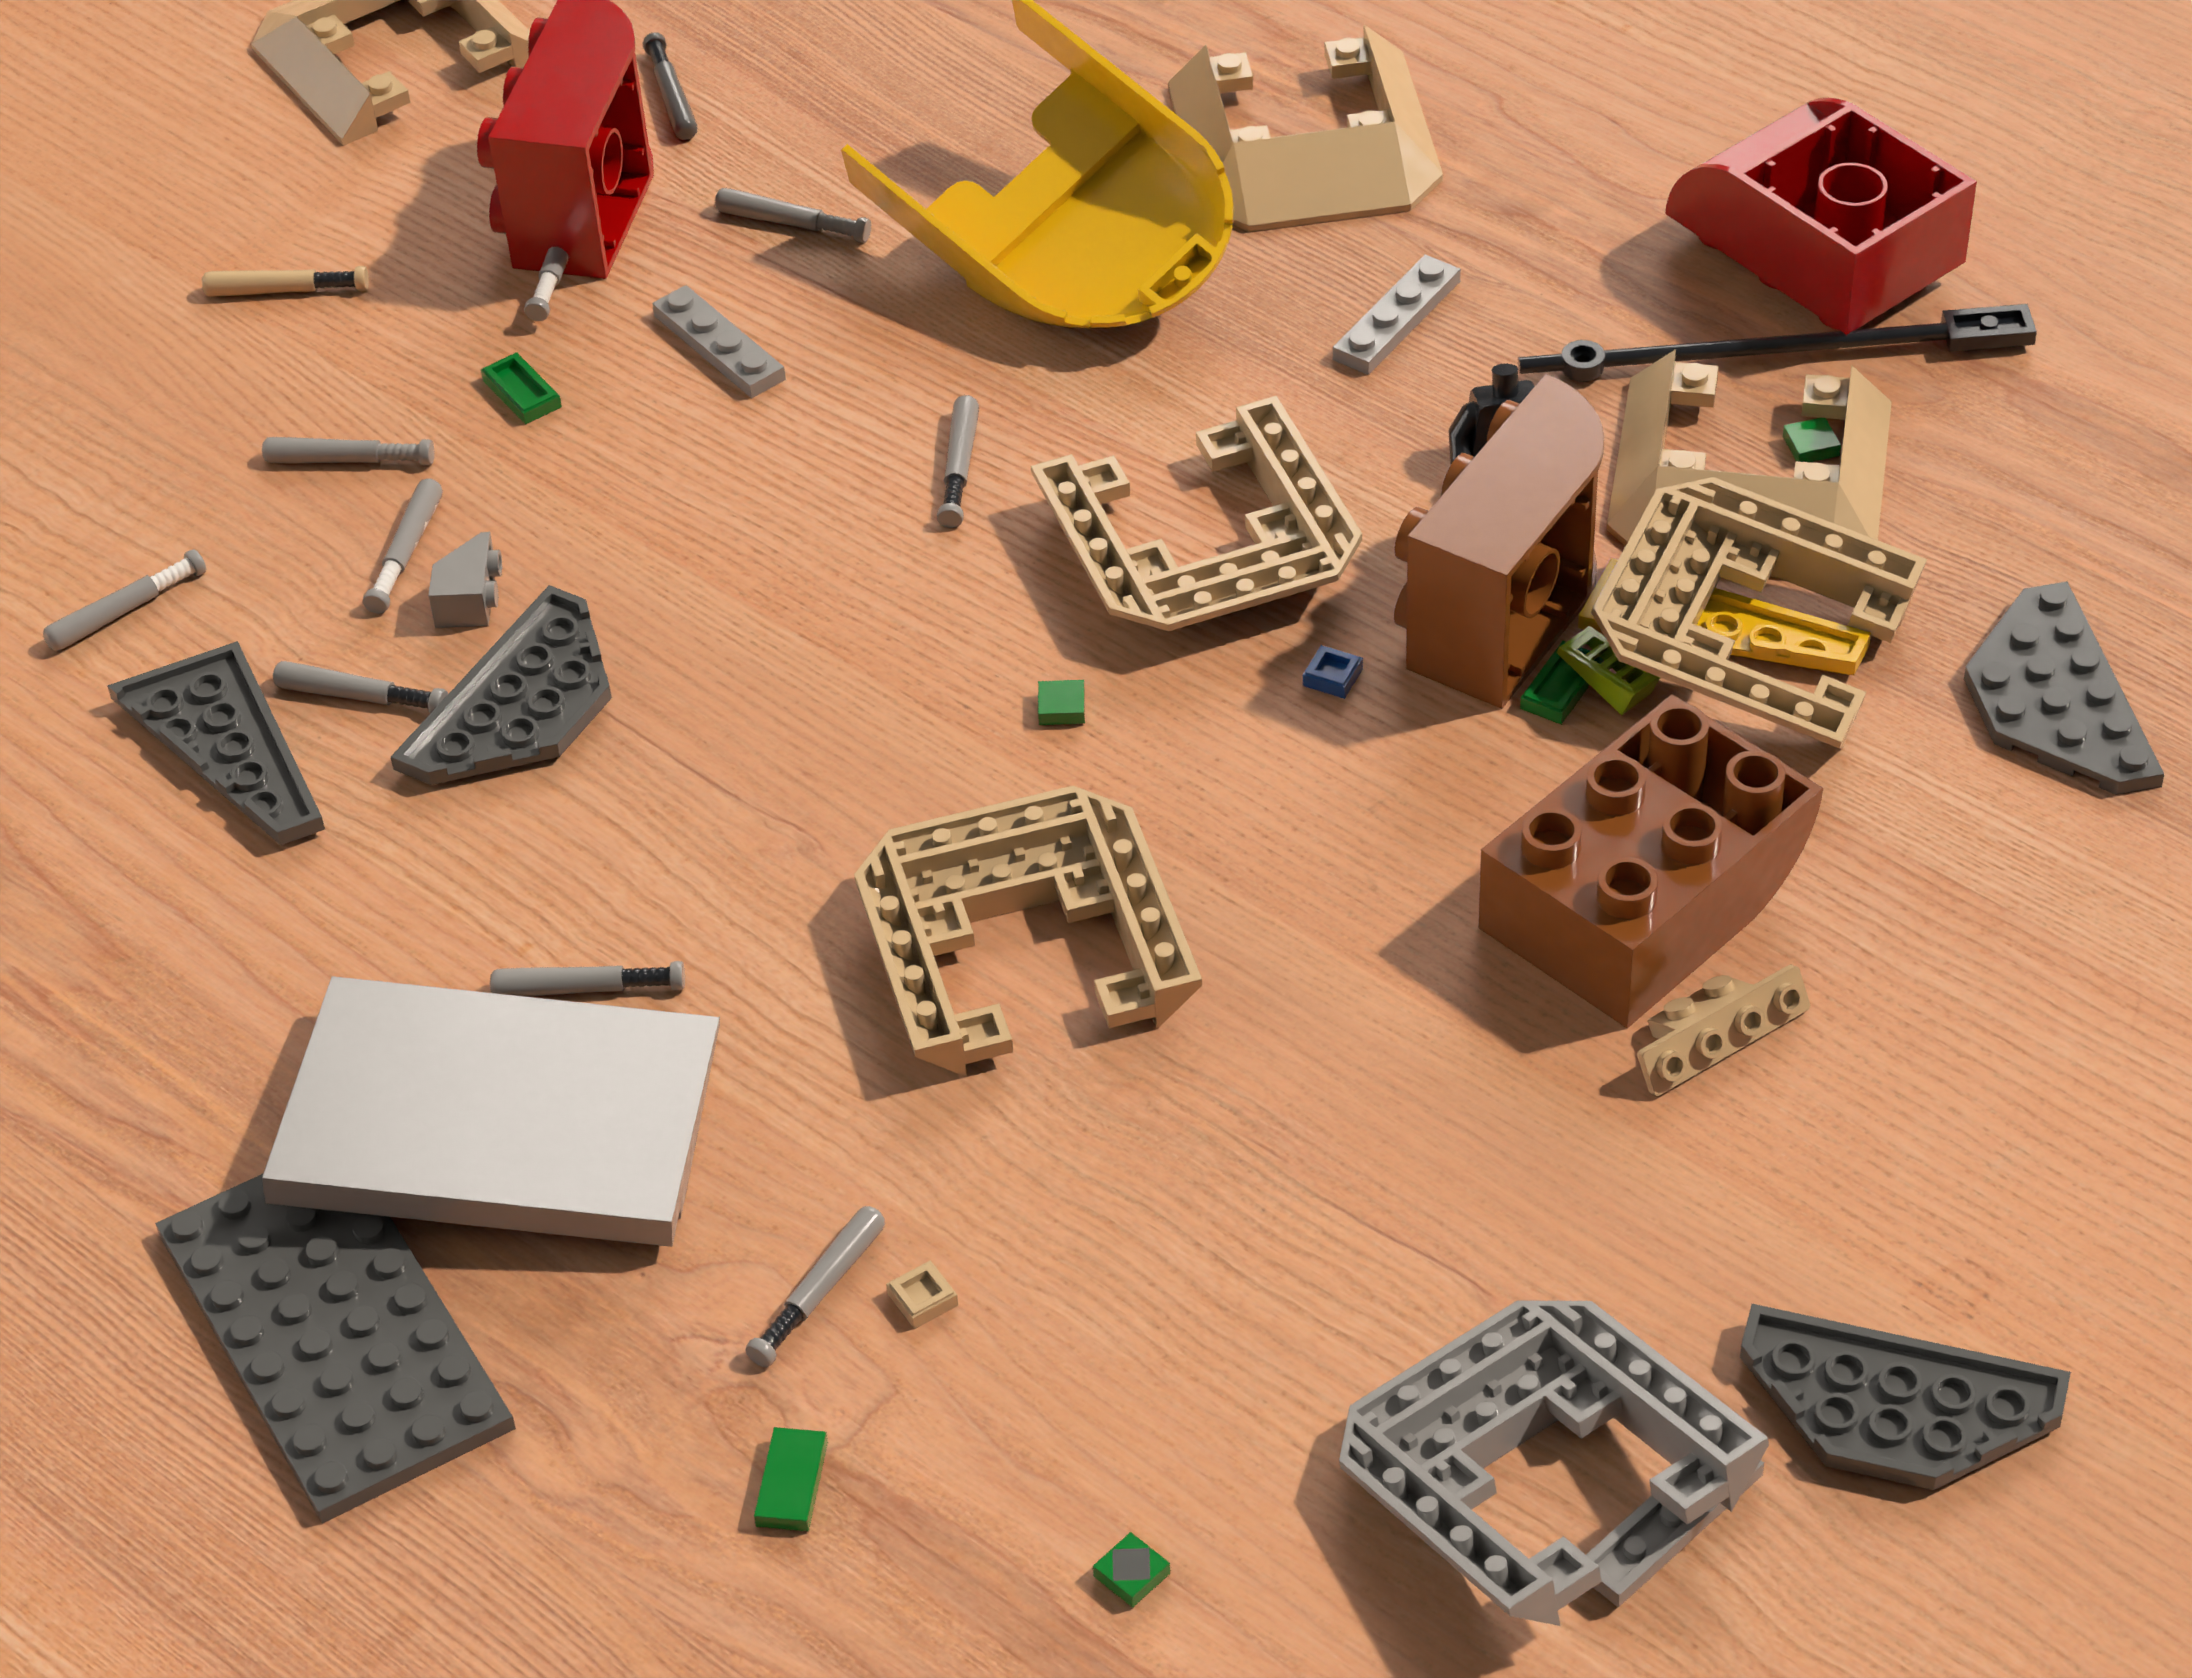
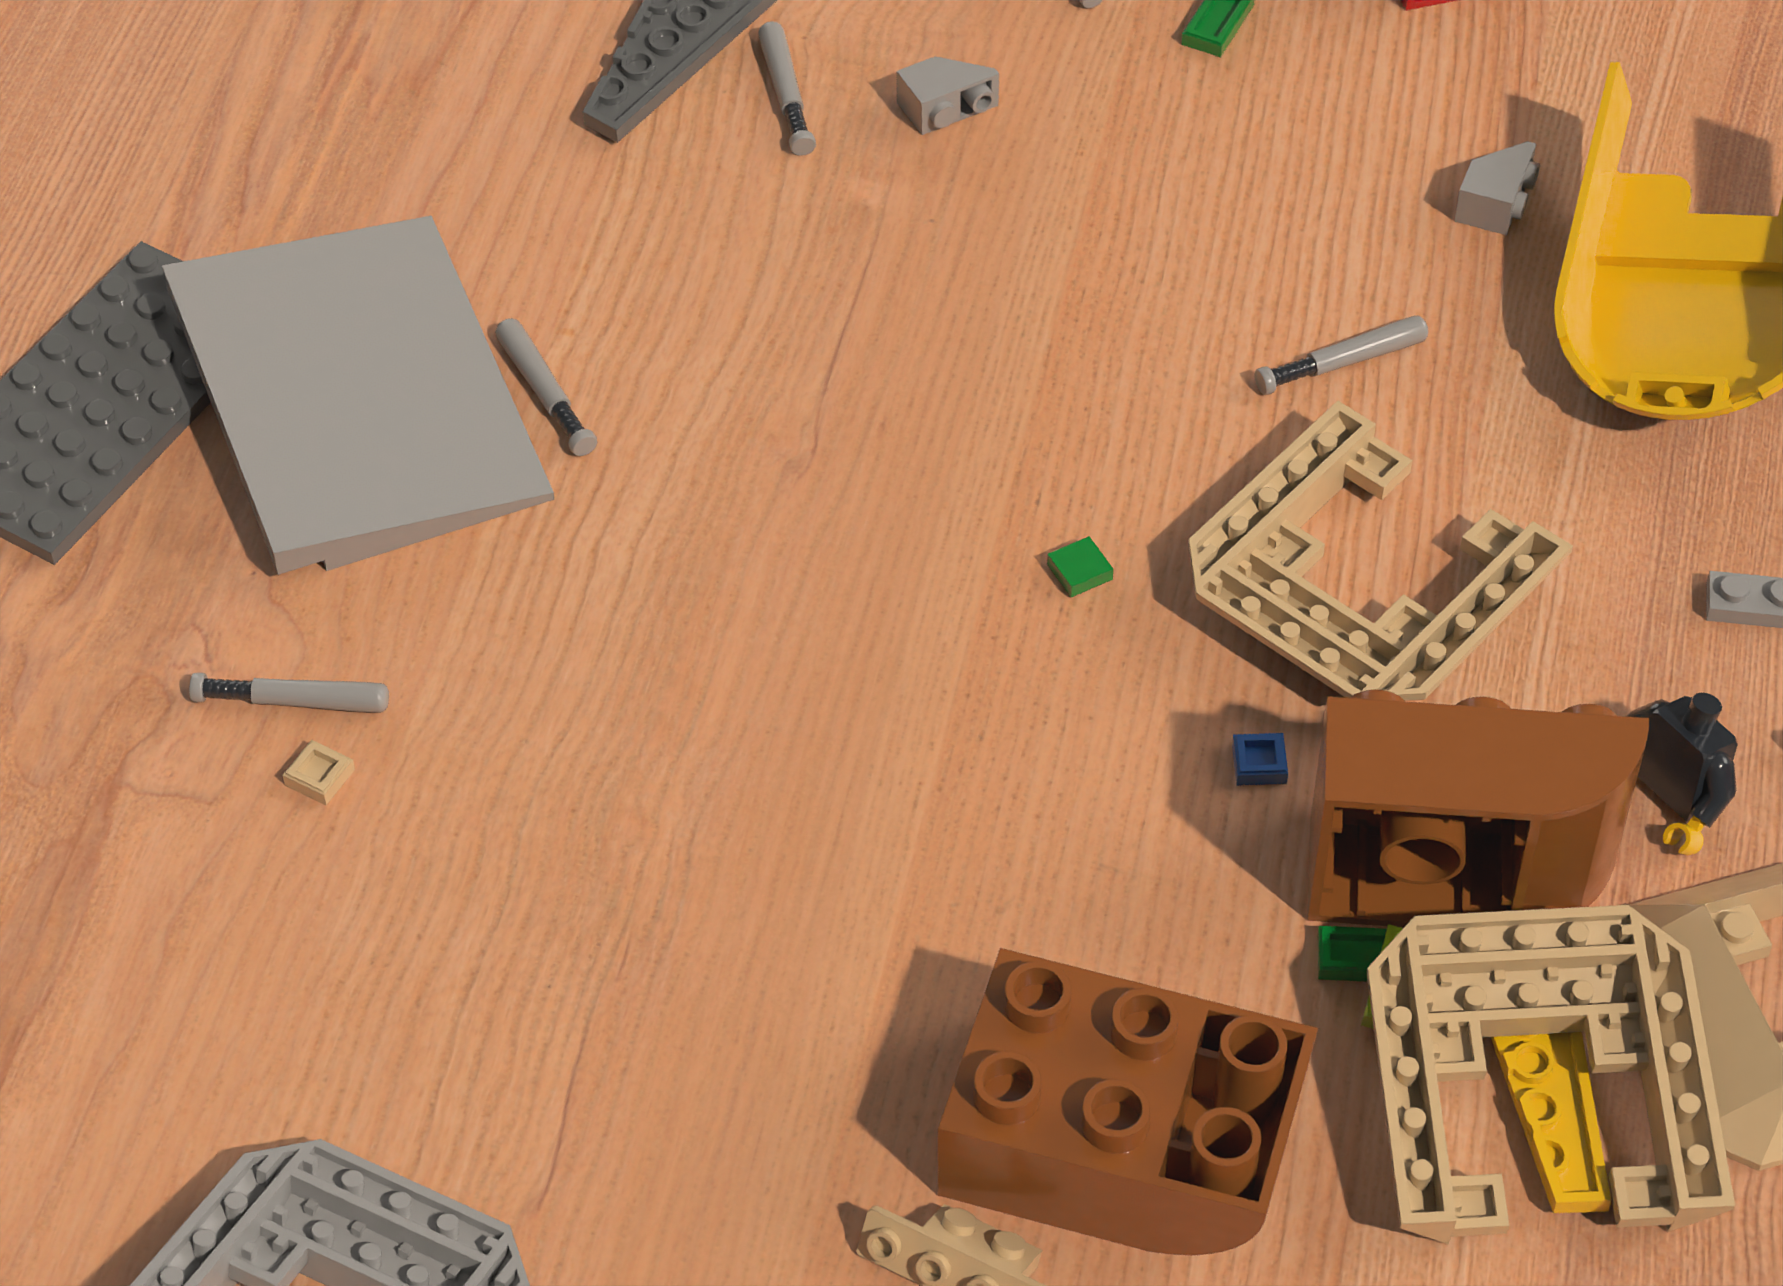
camera: 60 degrees right, 5 degrees up
(413, 524) = (988, 30): light grey piece -> none
(518, 700) = (840, 191): dark grey plate -> none
(719, 341) = (1375, 120): light grey plate -> none
(781, 212) = (1576, 78): light grey piece -> none
(791, 1479) = (75, 768): green tile -> none
(863, 300) = (1496, 187): none -> light grey slope
(1008, 857) = (813, 580): tan slope -> none
(1131, 1569) = (84, 1054): green tile -> none

